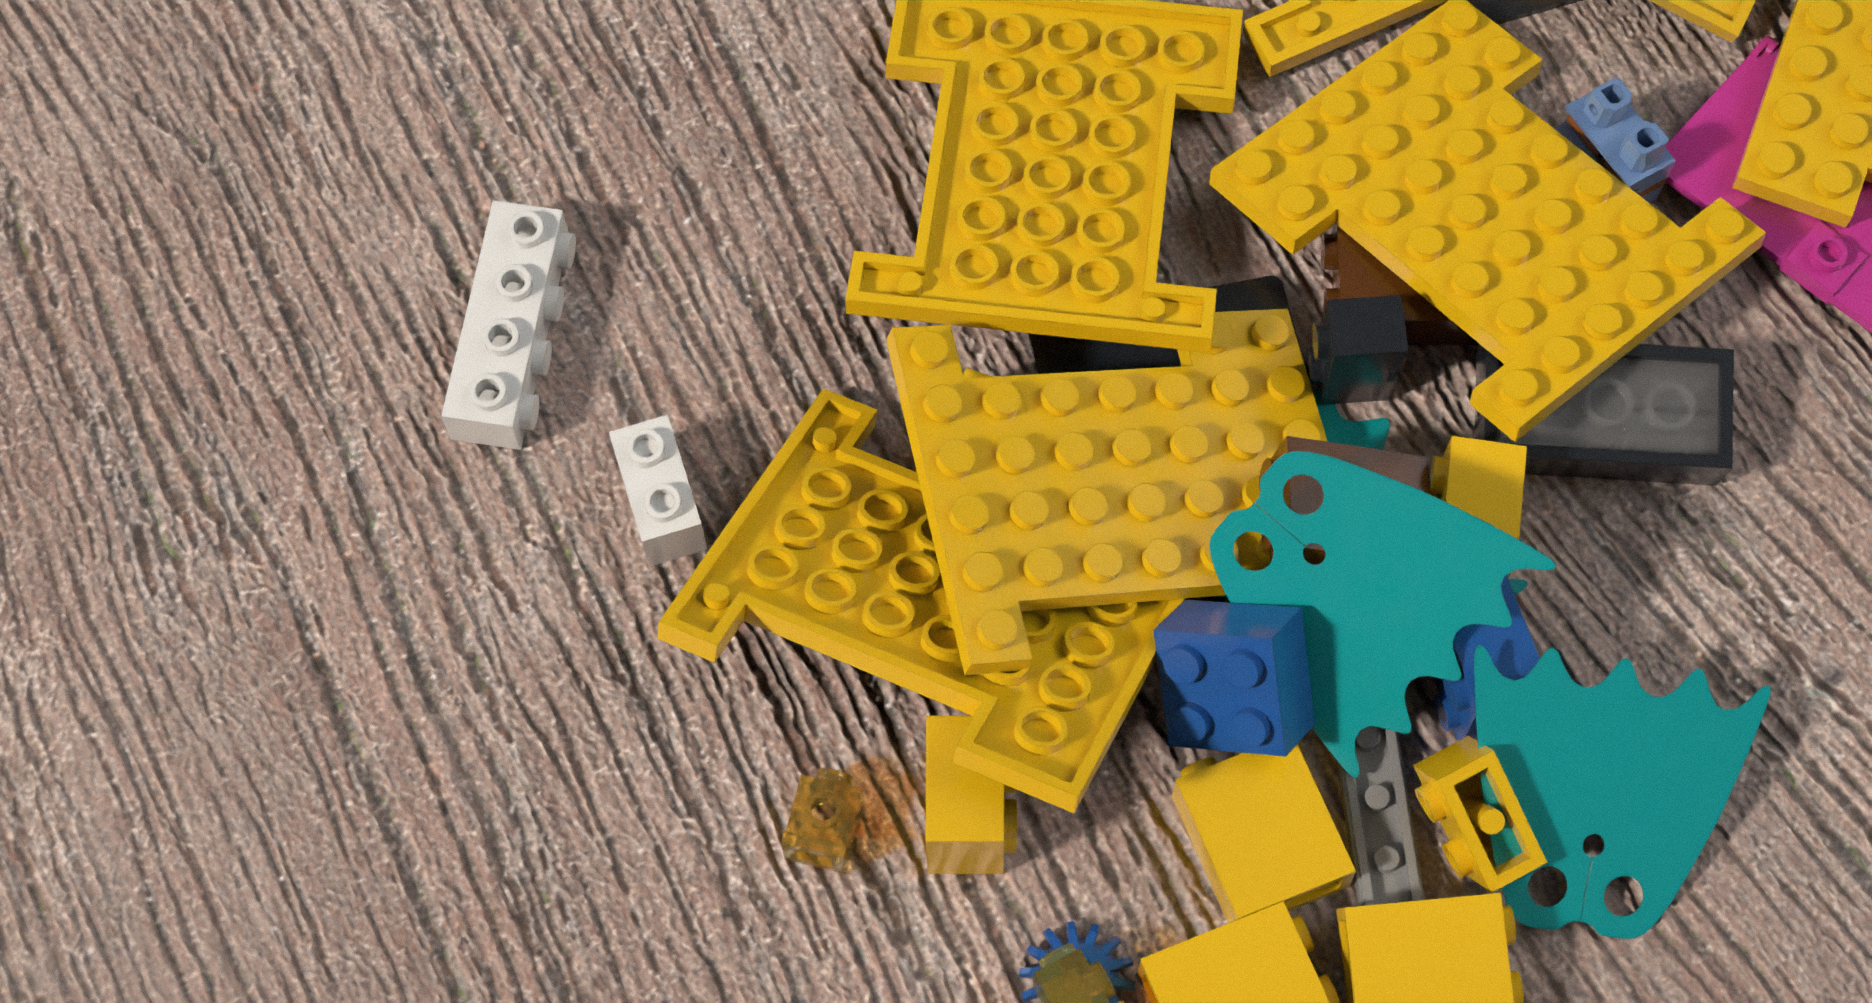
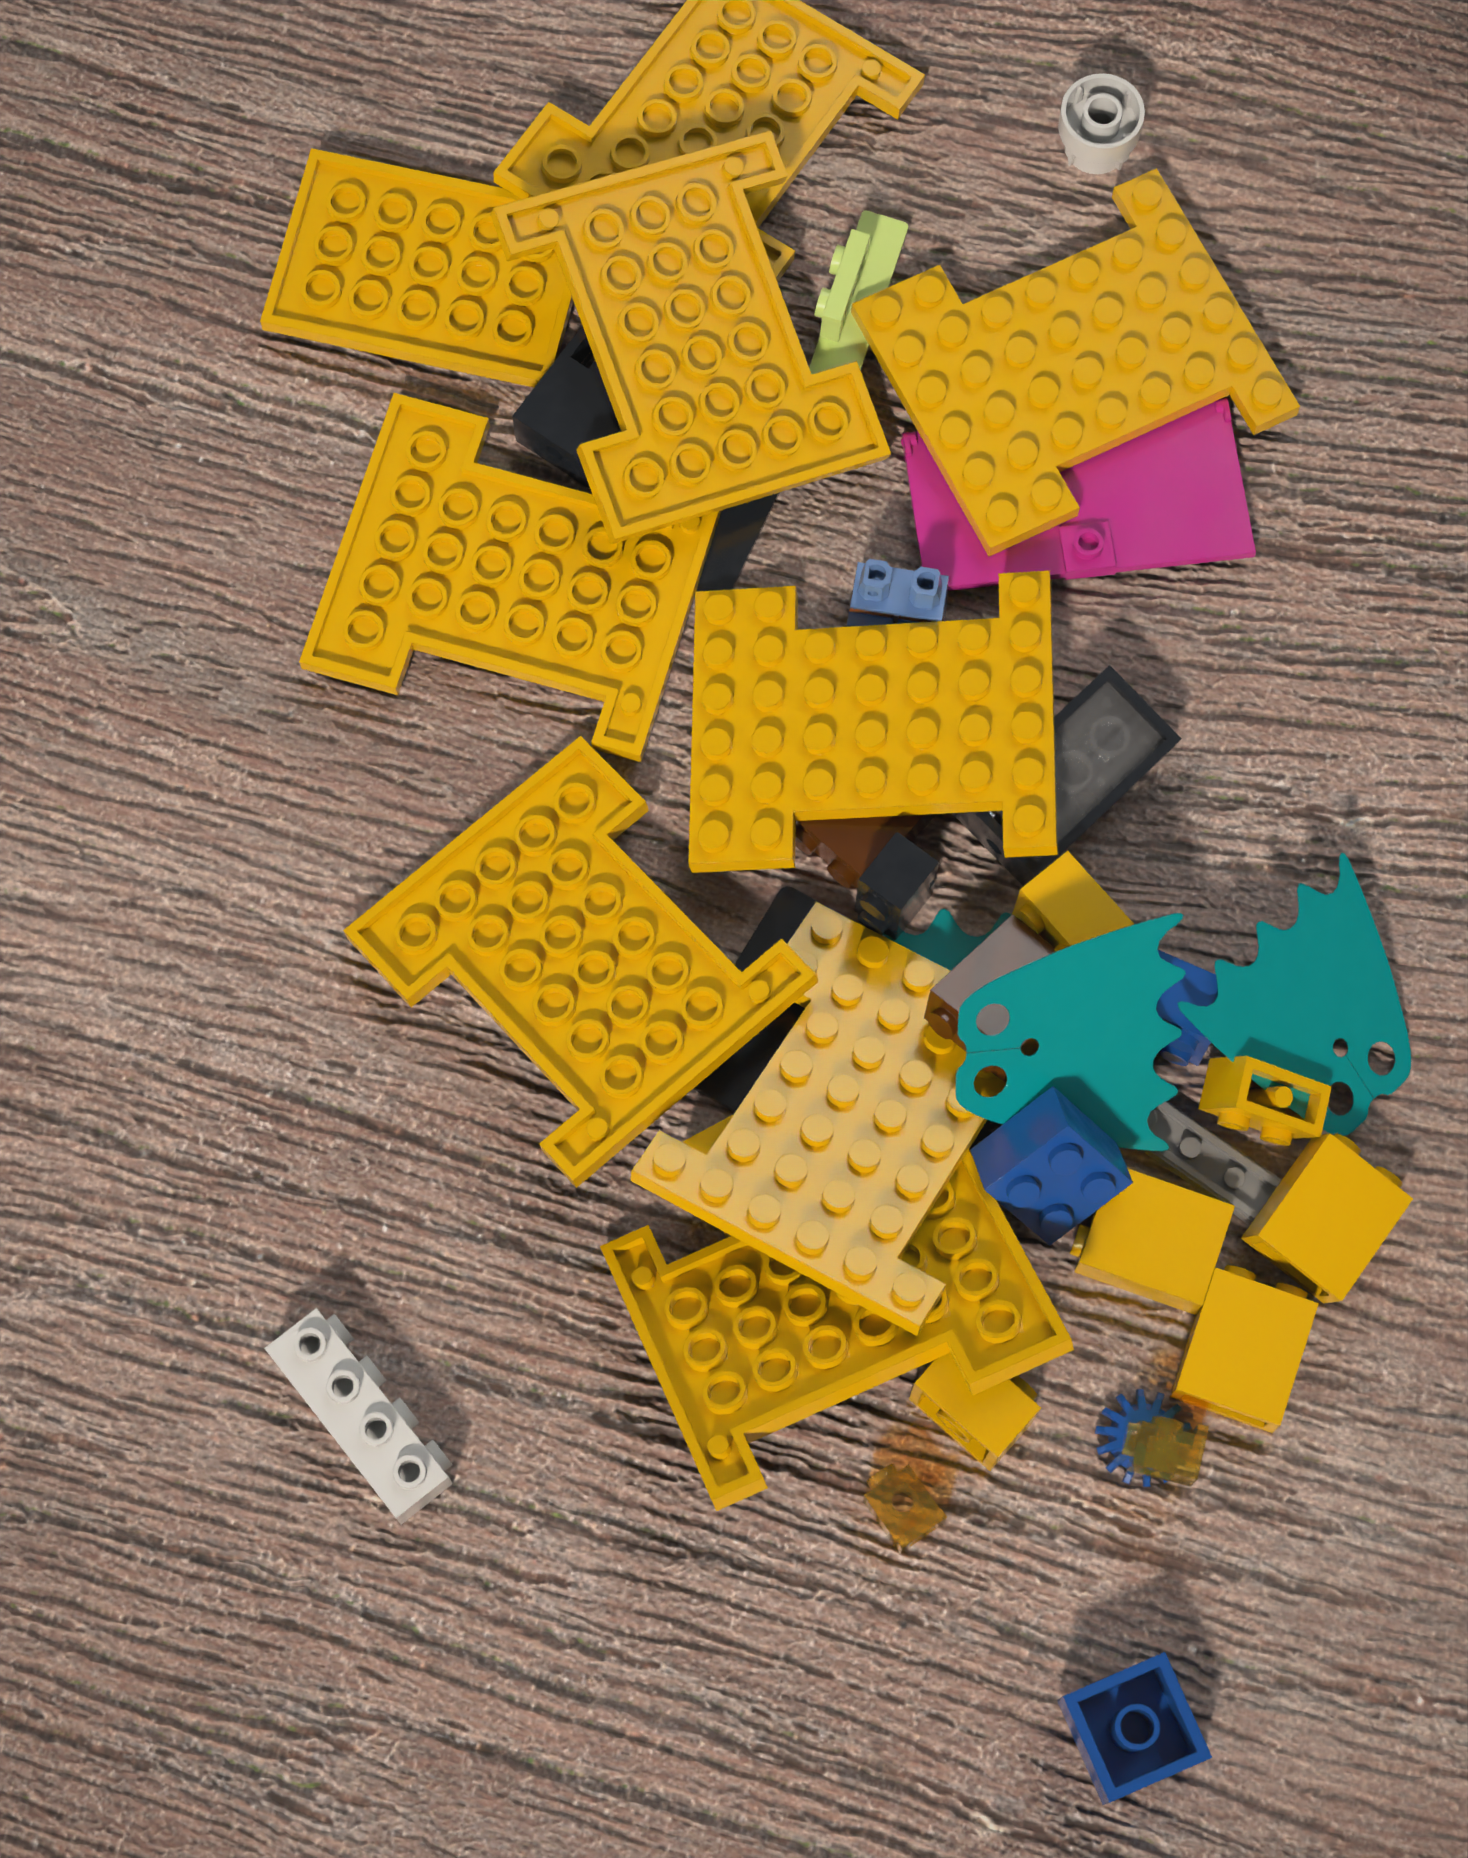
camera: 50 degrees left, 5 degrees up
(658, 490) = (577, 1417): white brick -> none

